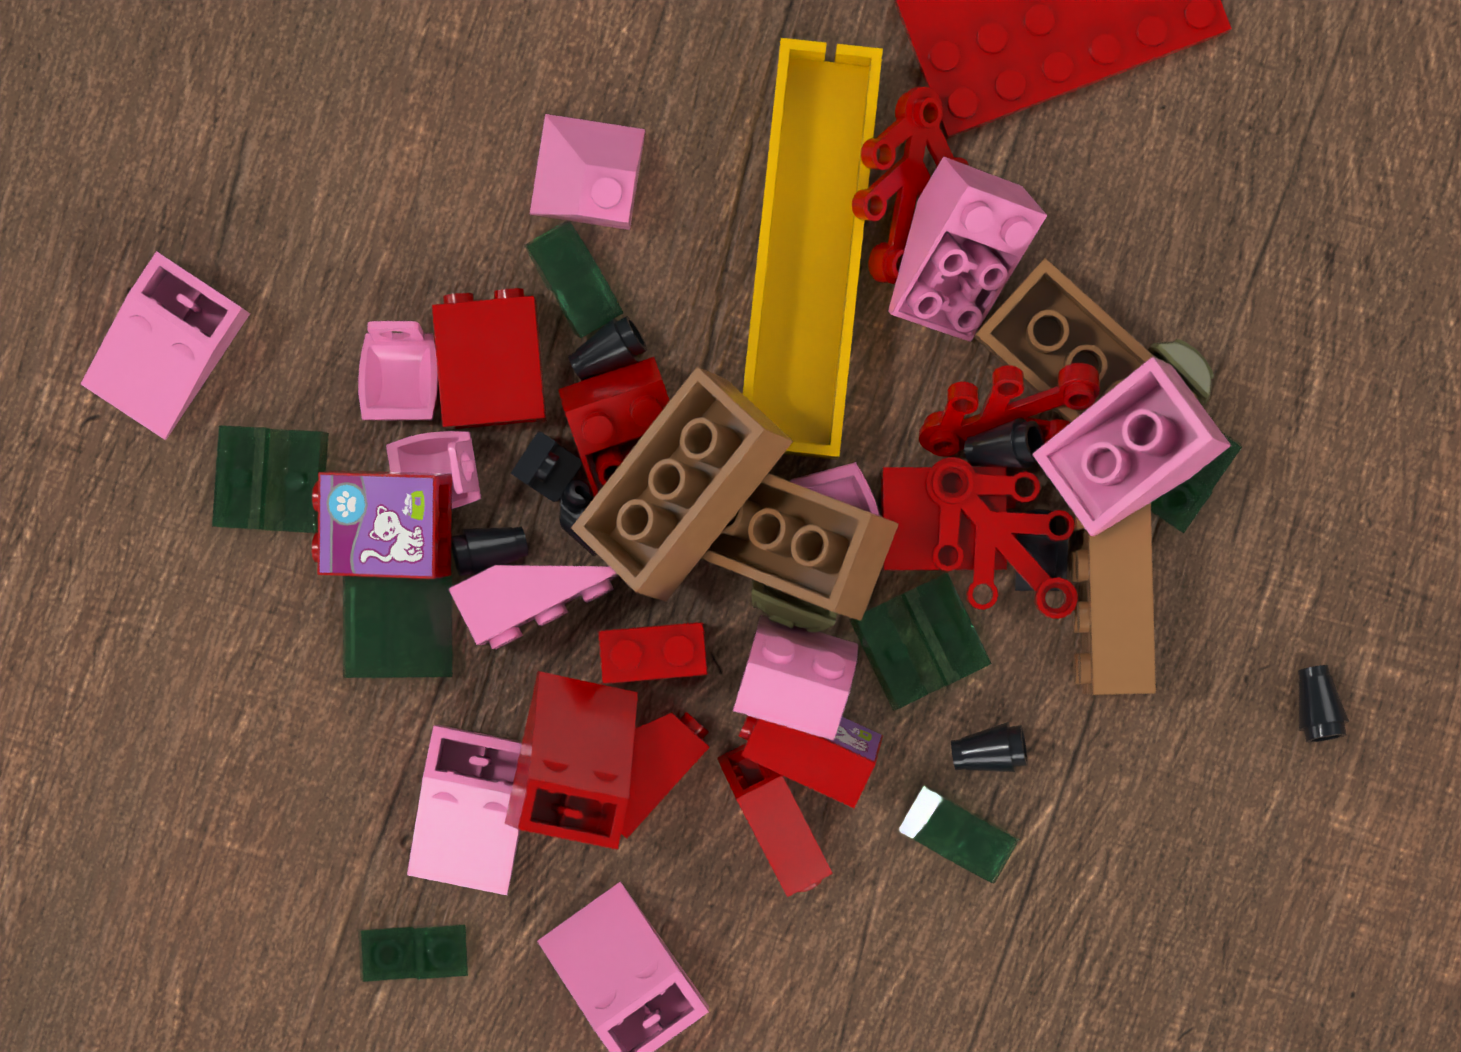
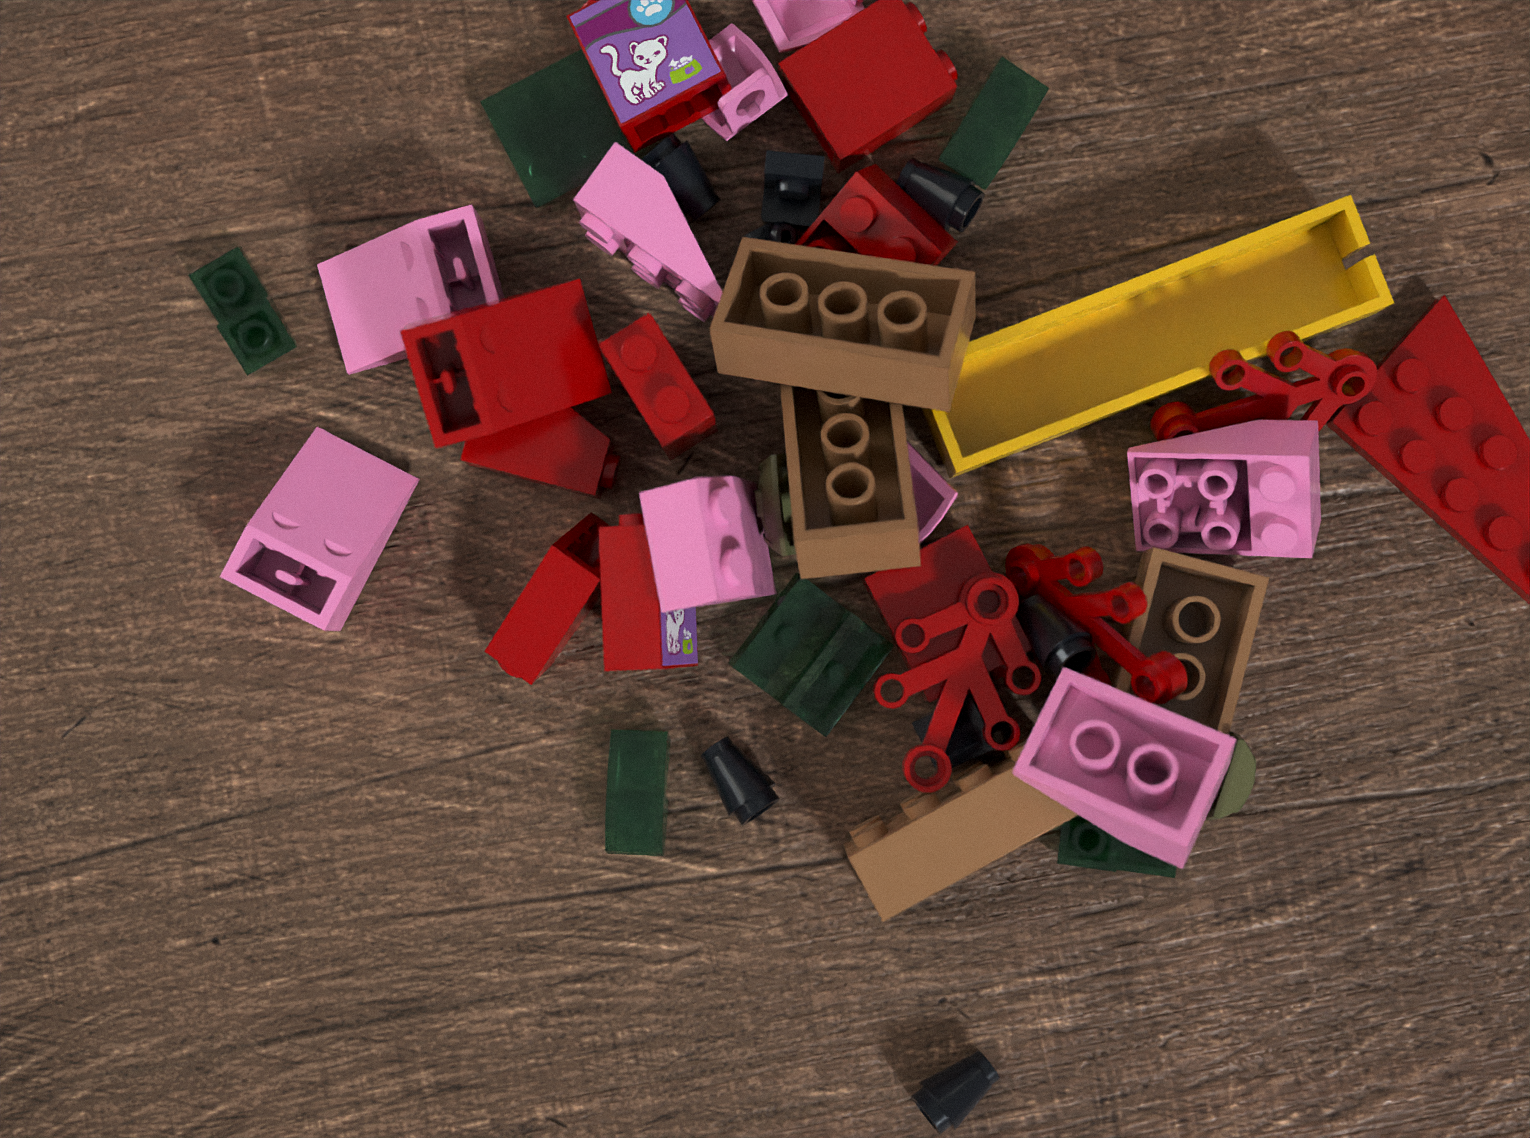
camera: 65 degrees right, 0 degrees up
(587, 172) = (1105, 85): bright pink slope -> none

